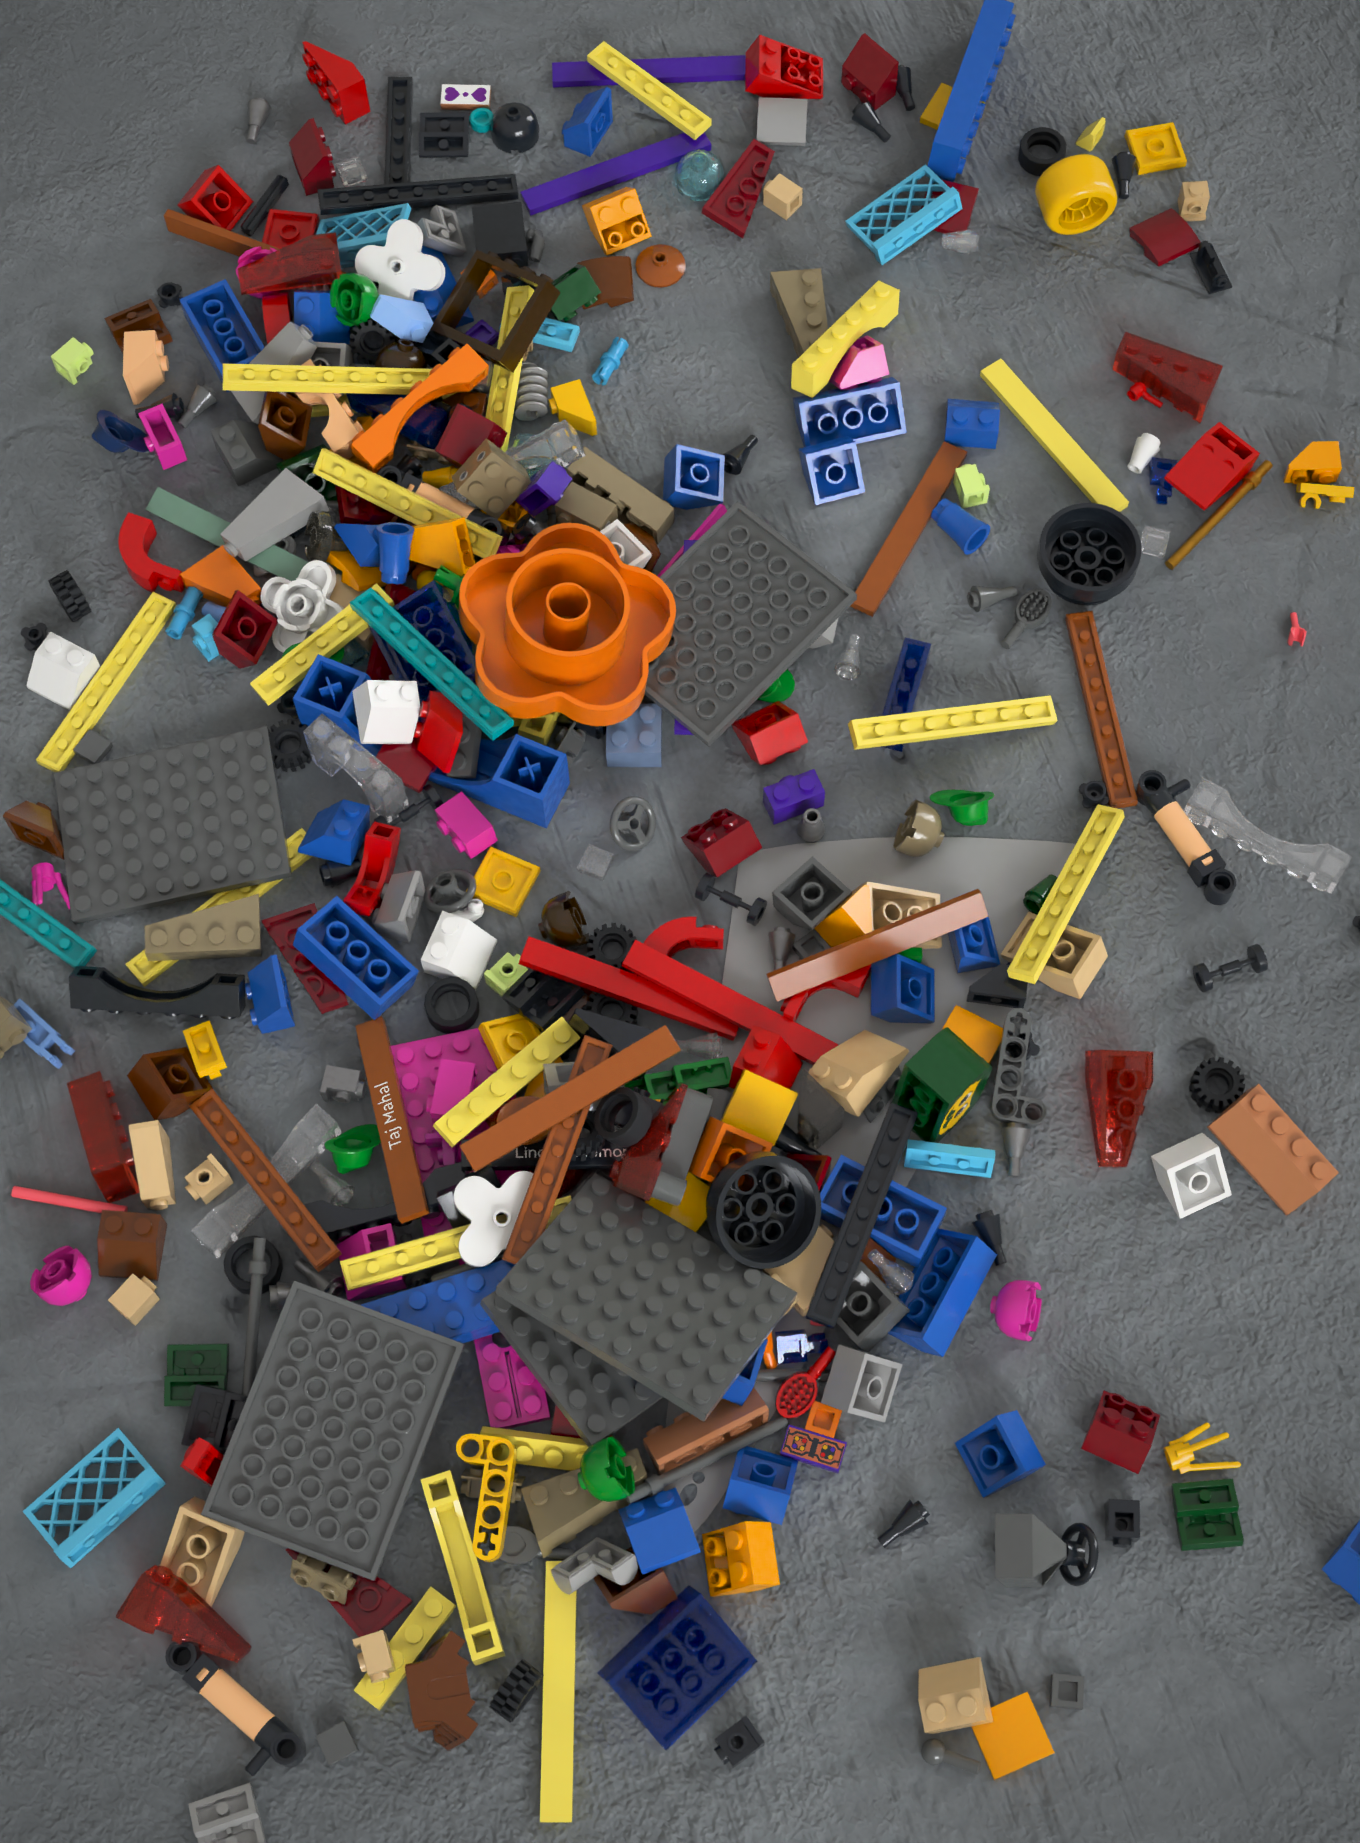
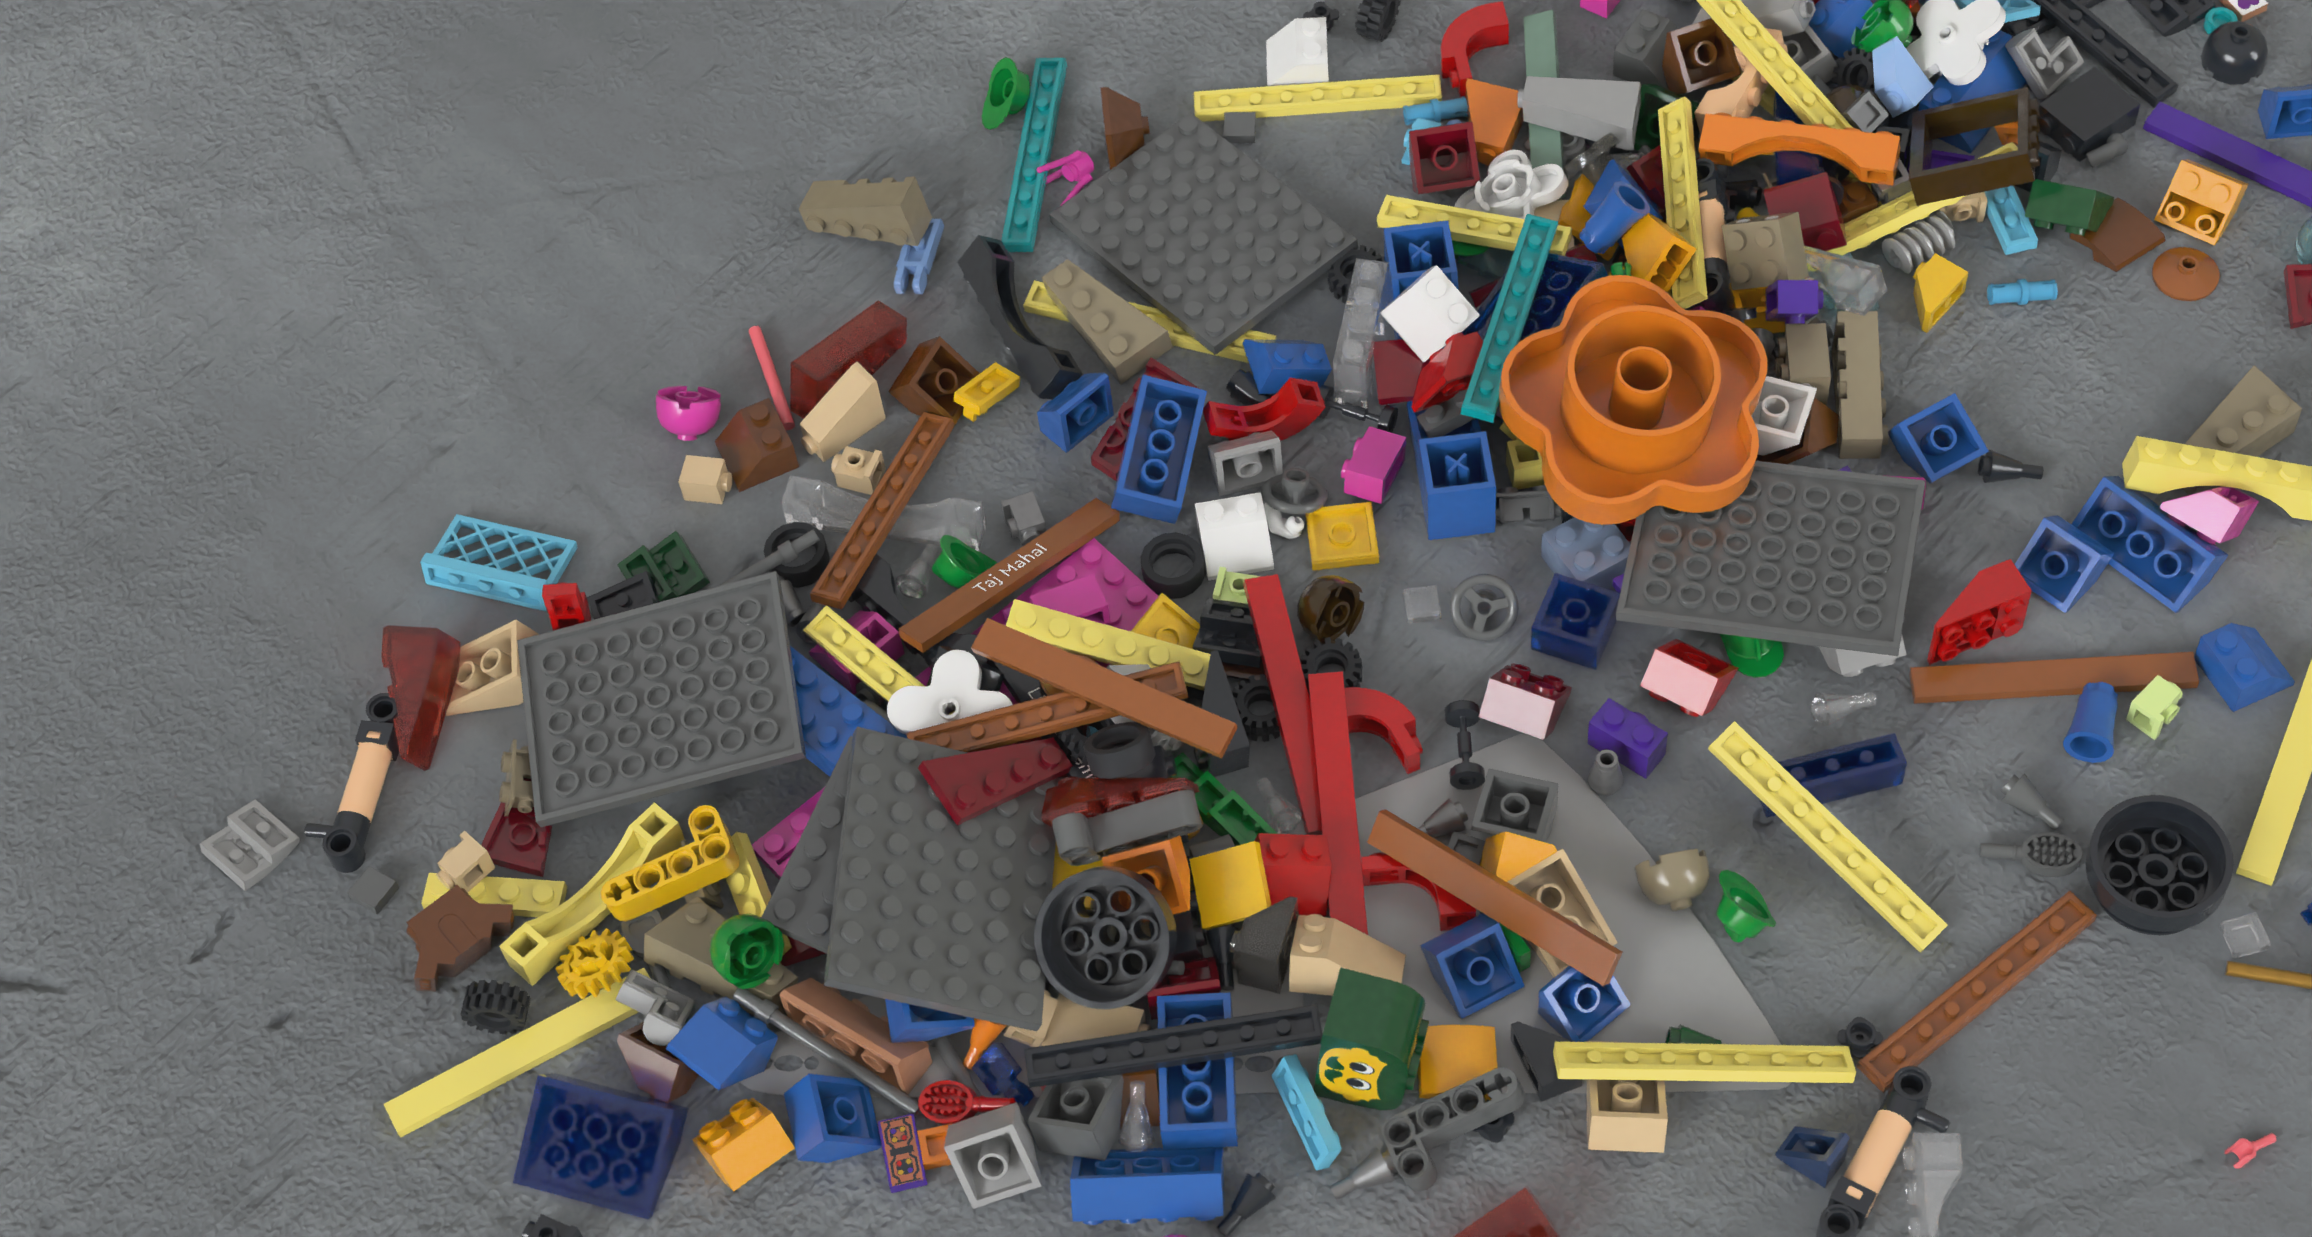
camera: 65 degrees right, 10 degrees down
(418, 354) = (1865, 113): none -> tile
(513, 1588) = (594, 963): none -> yellow gear
(585, 1219) = (990, 777): none -> dark red wing
(684, 773) = (1575, 621): none -> clear blue brick
(844, 533) = (1985, 610): none -> red slope
(1161, 867) = (1814, 1152): none -> dark blue slope

